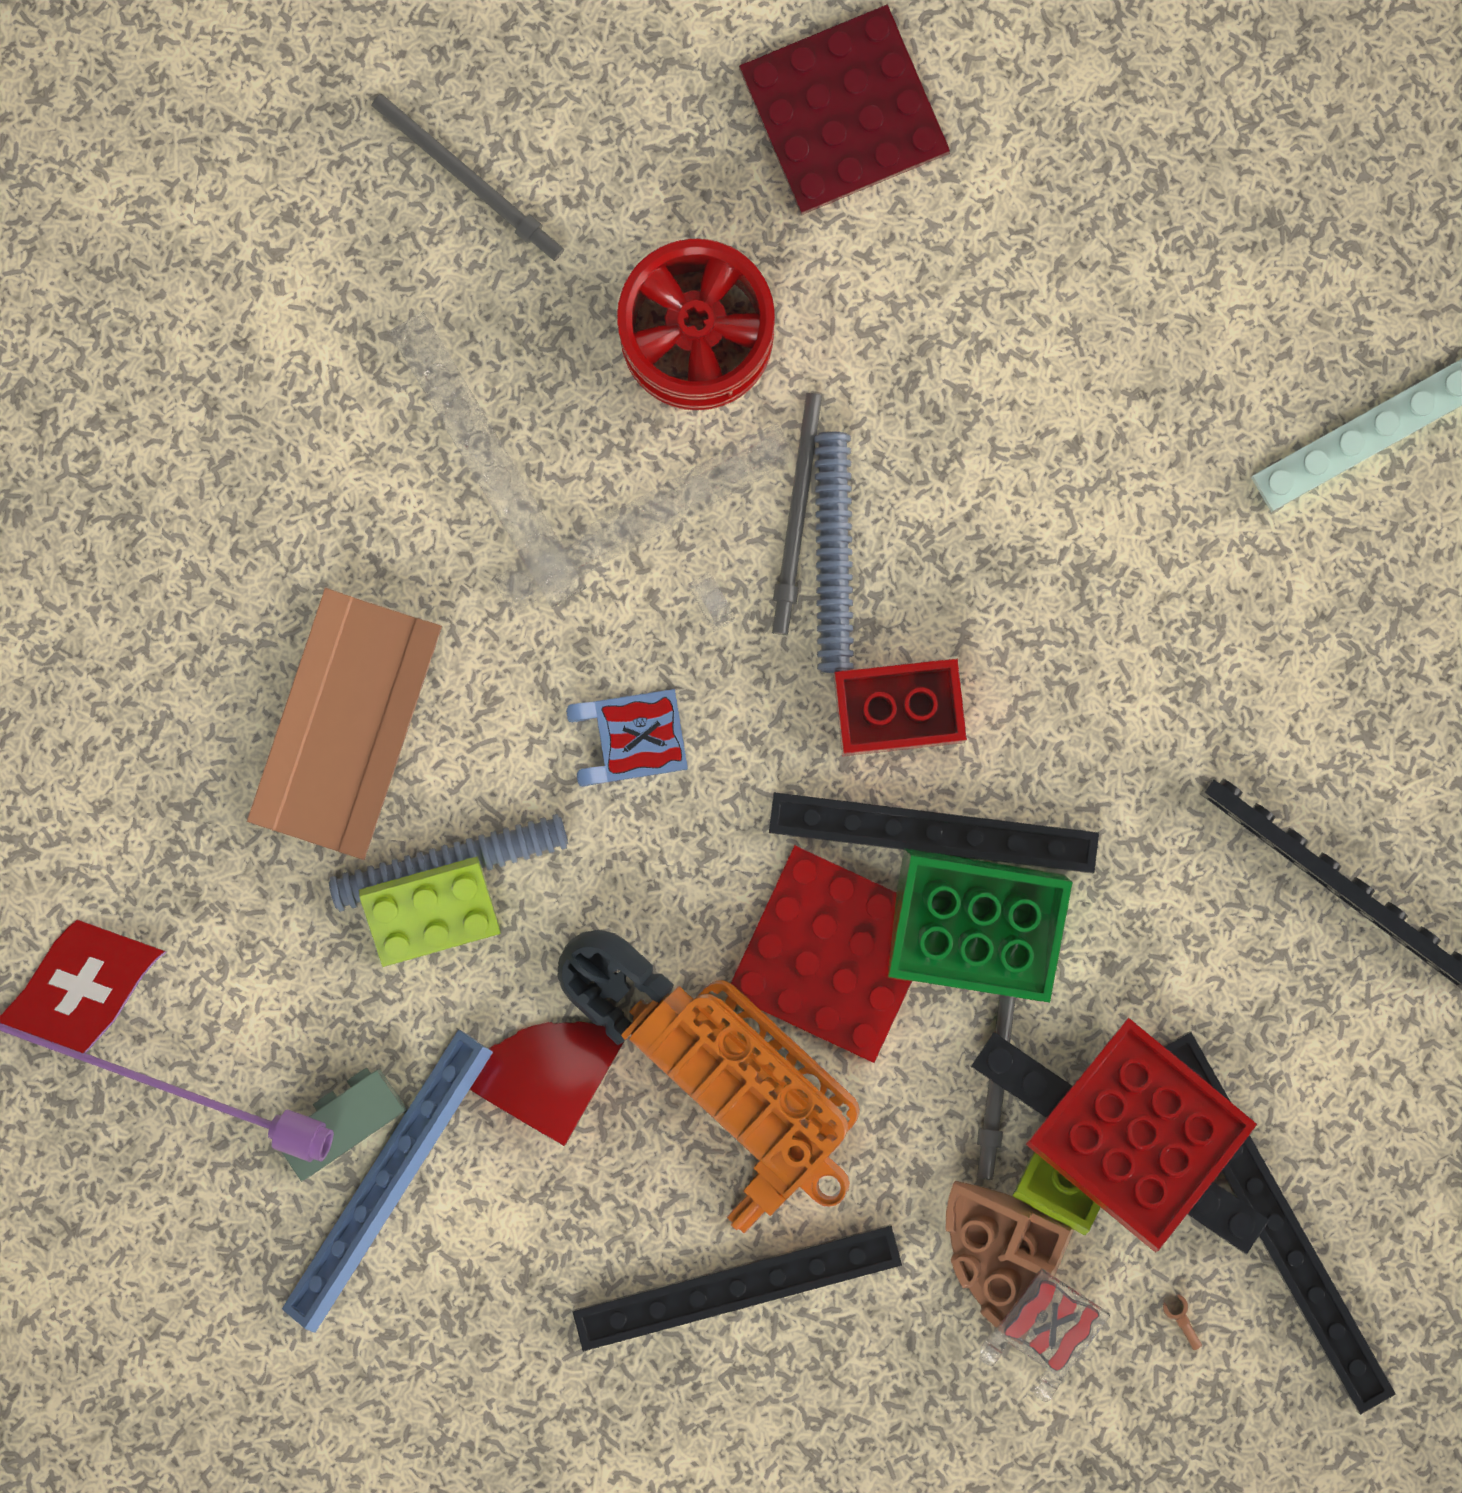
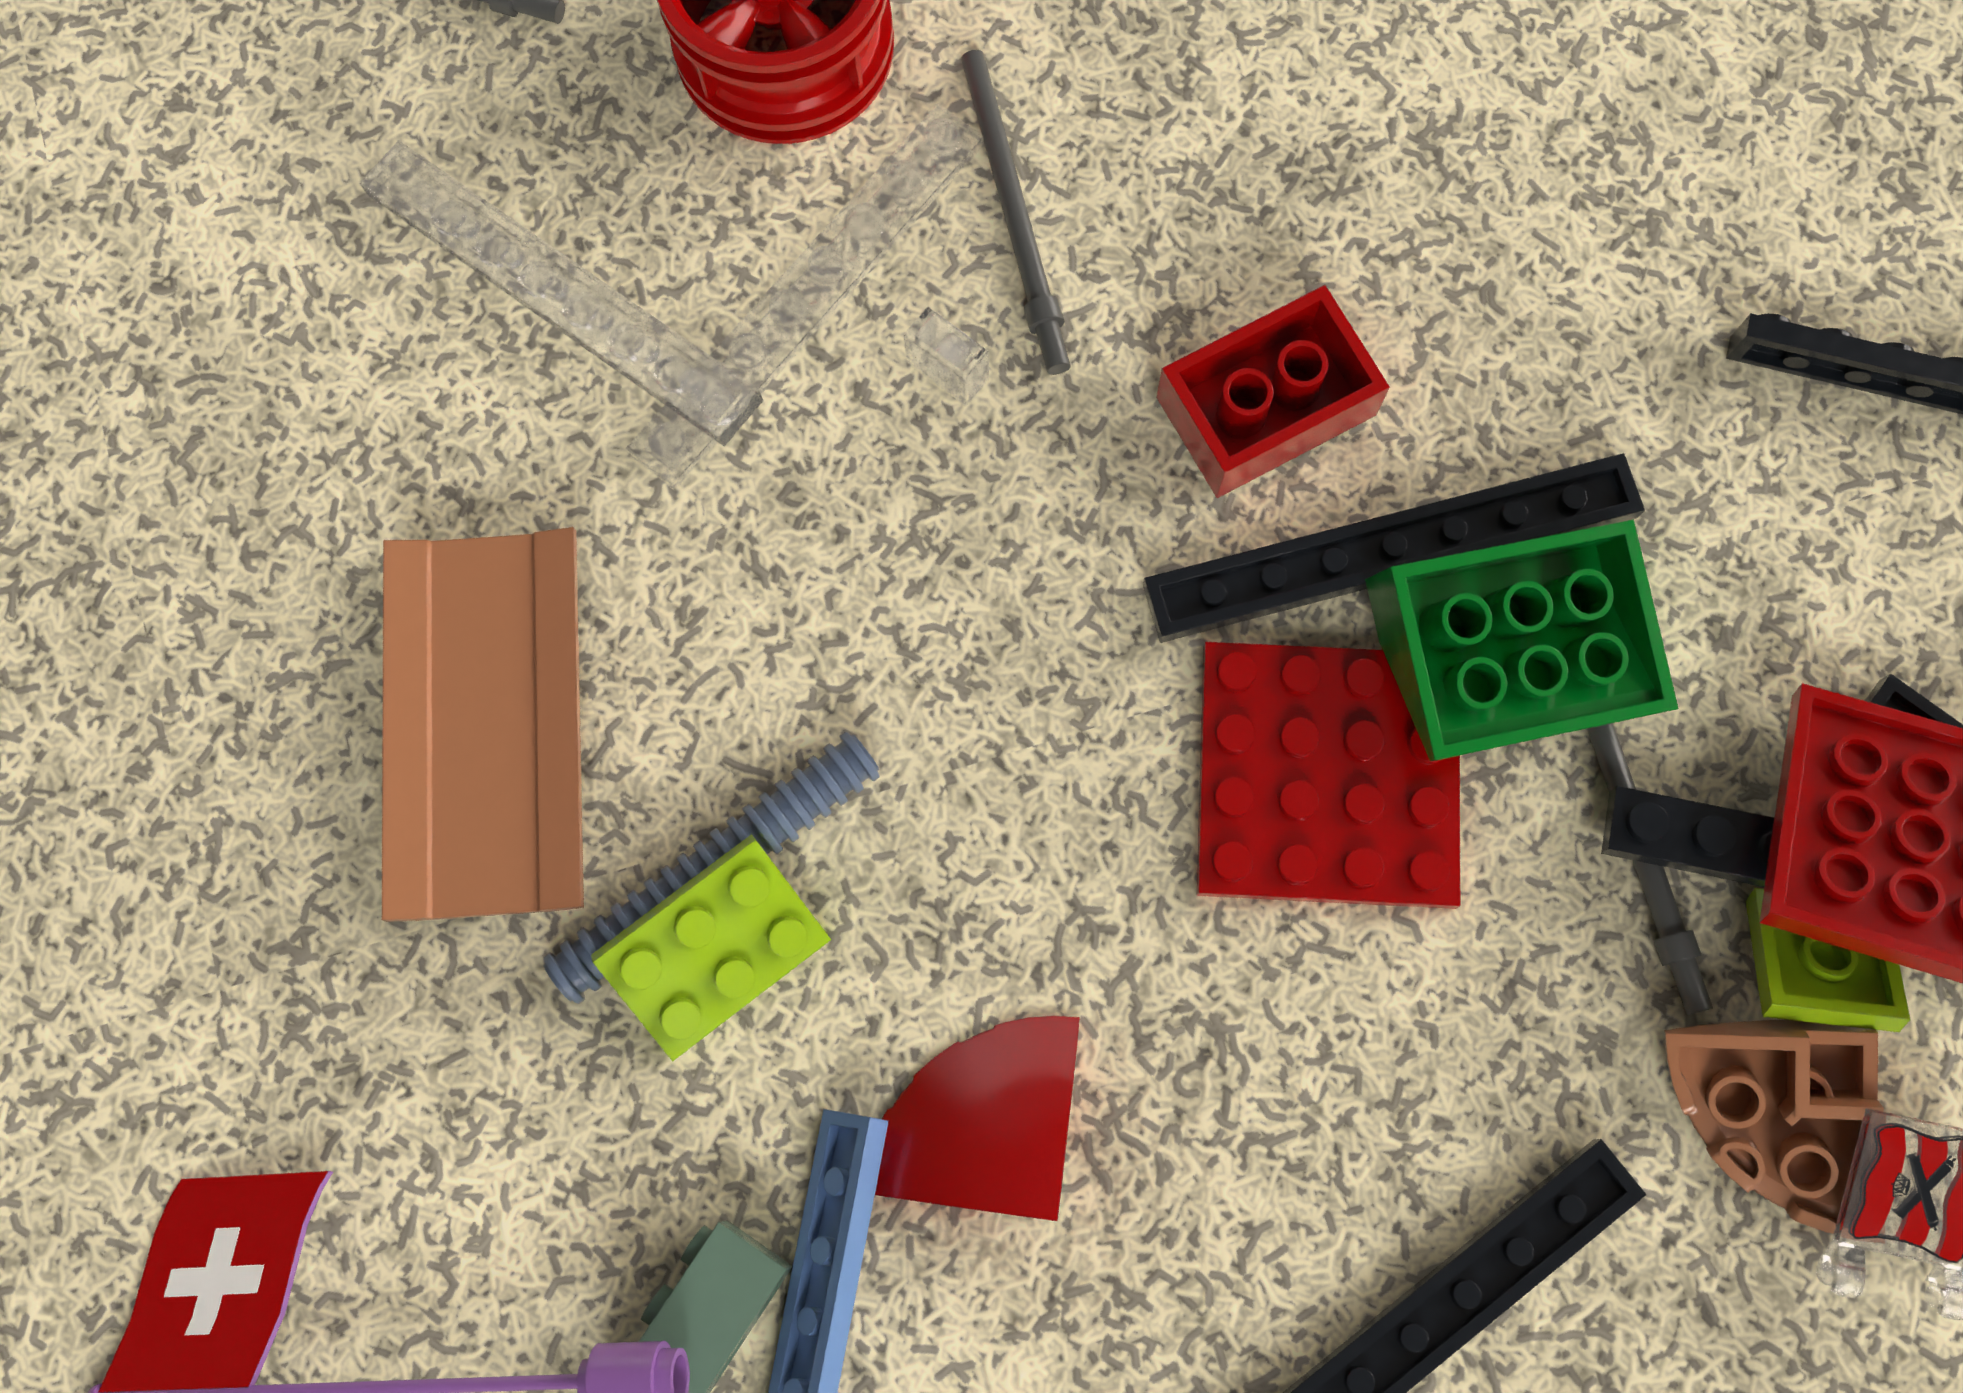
camera: 20 degrees left, 10 degrees down
(636, 735) = (916, 585): flag -> none
(728, 1074) = (1253, 1008): orange piece -> none
(834, 552) = (1085, 231): sand blue piece -> none

